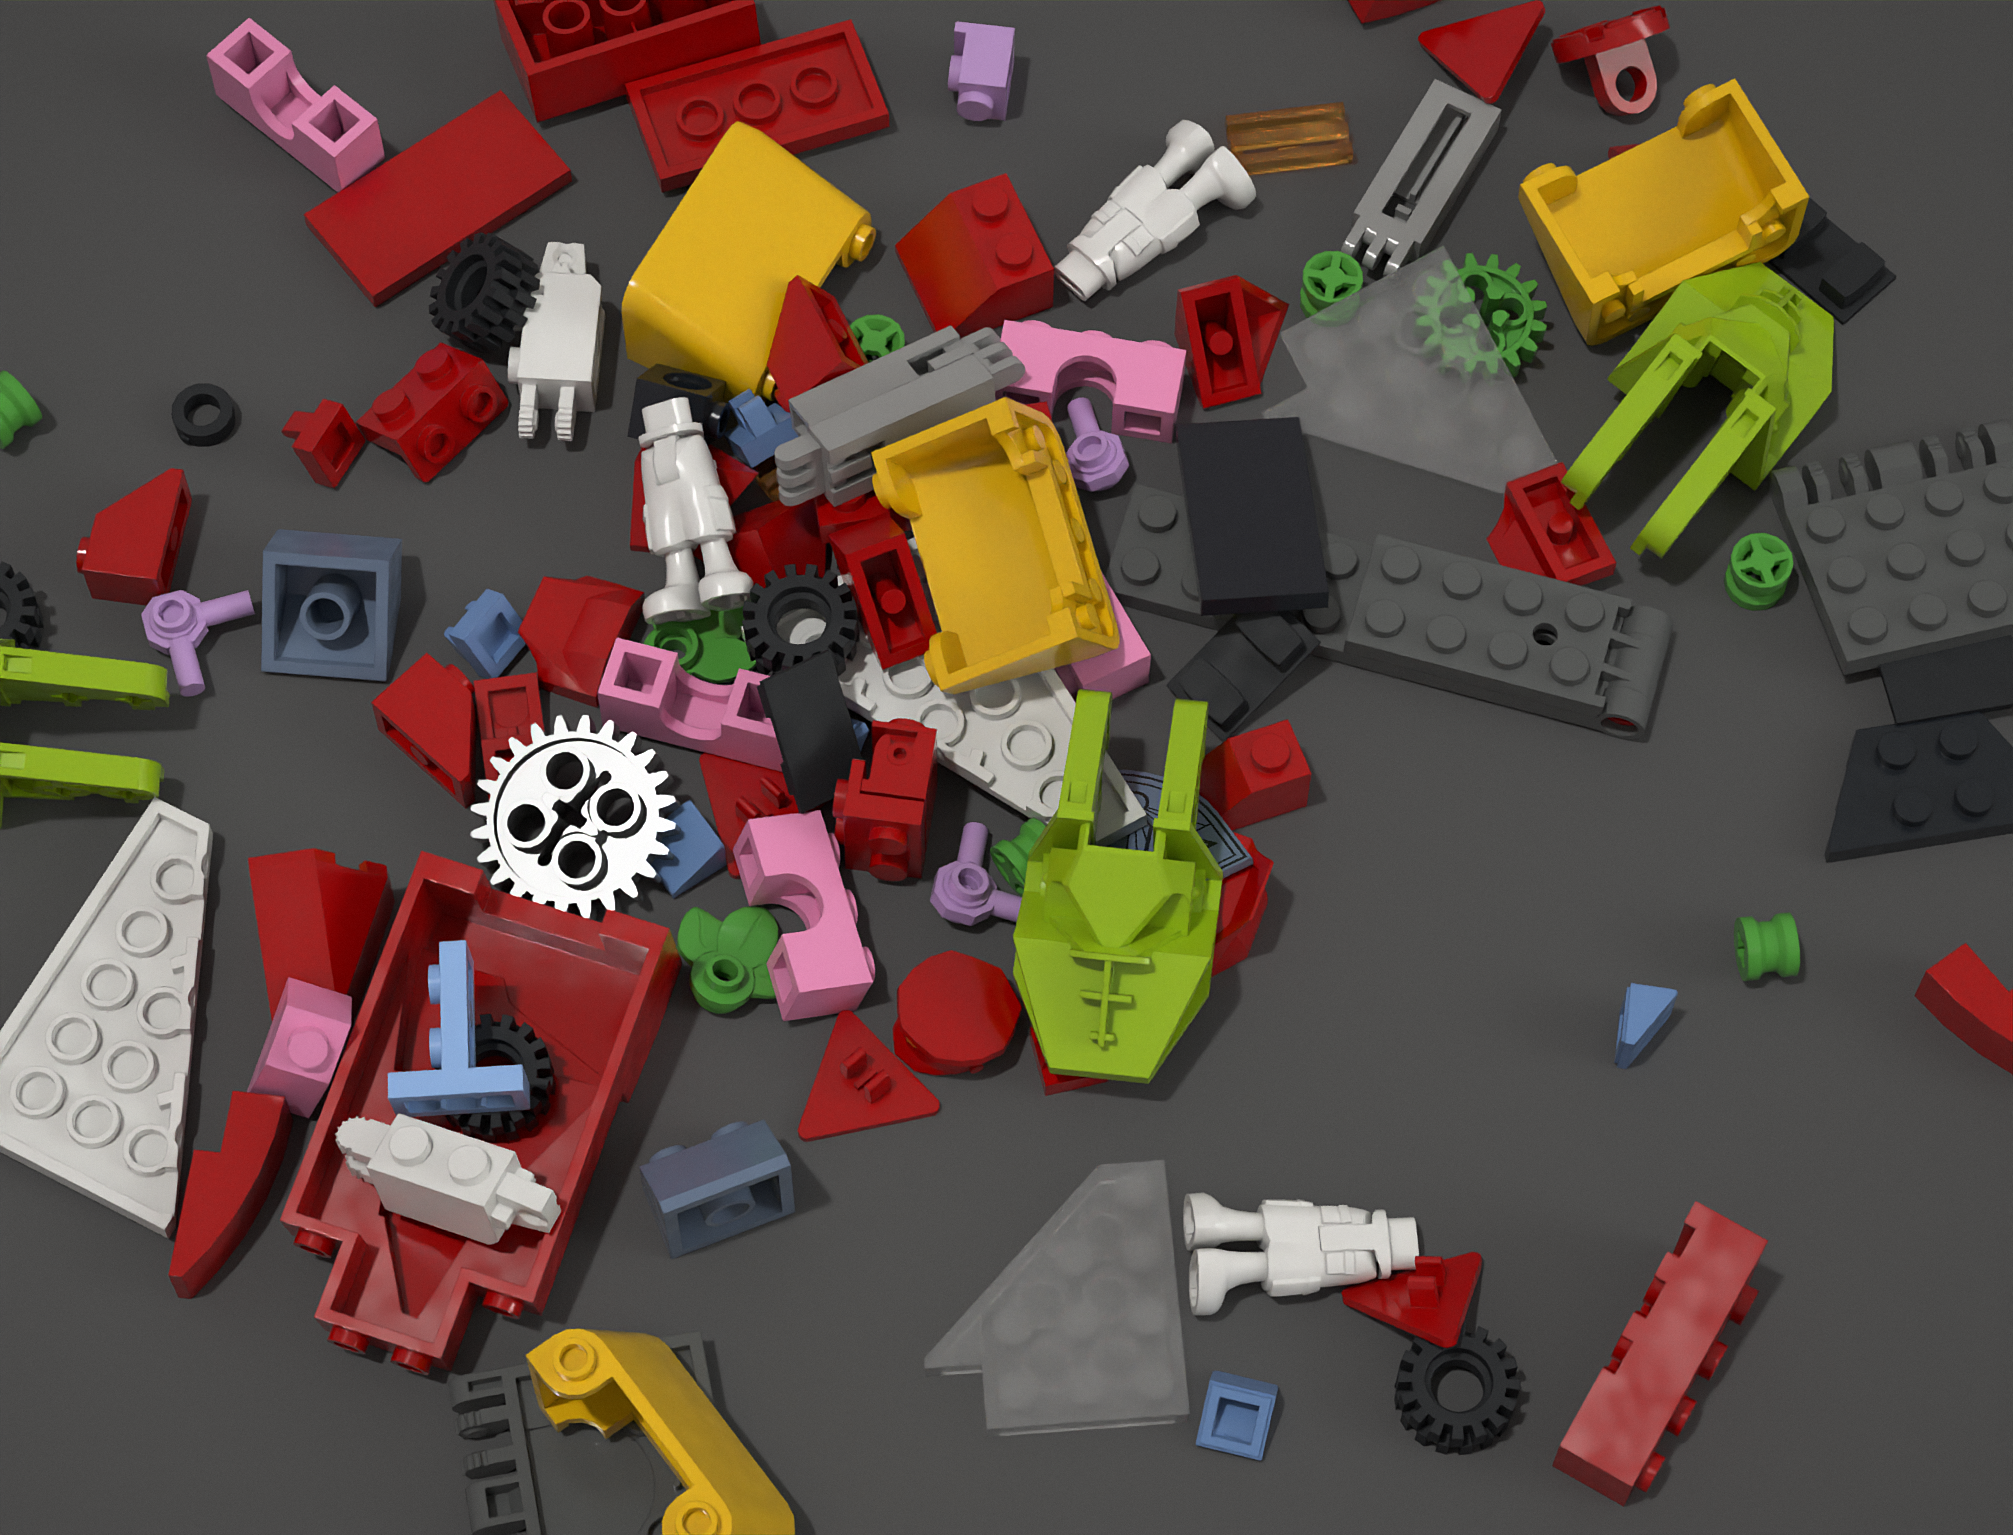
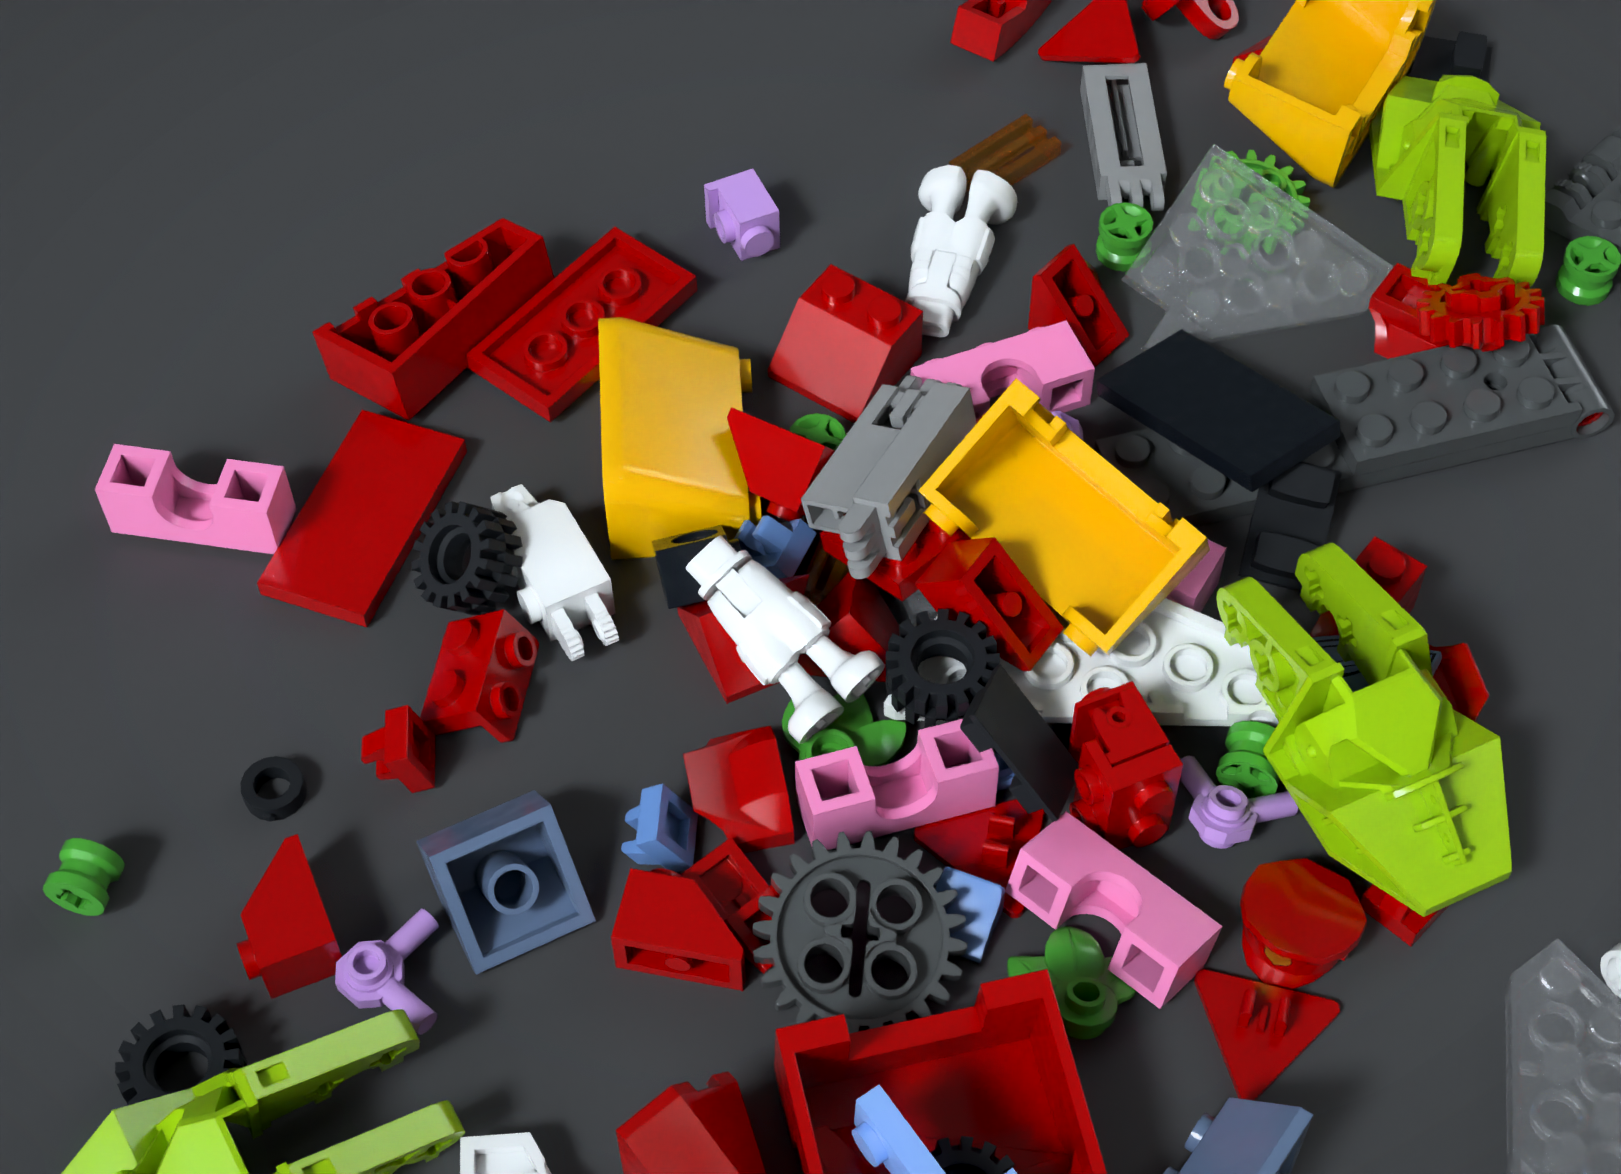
camera: 30 degrees left, 10 degrees down
(1569, 558) = (1480, 312): none -> red gear

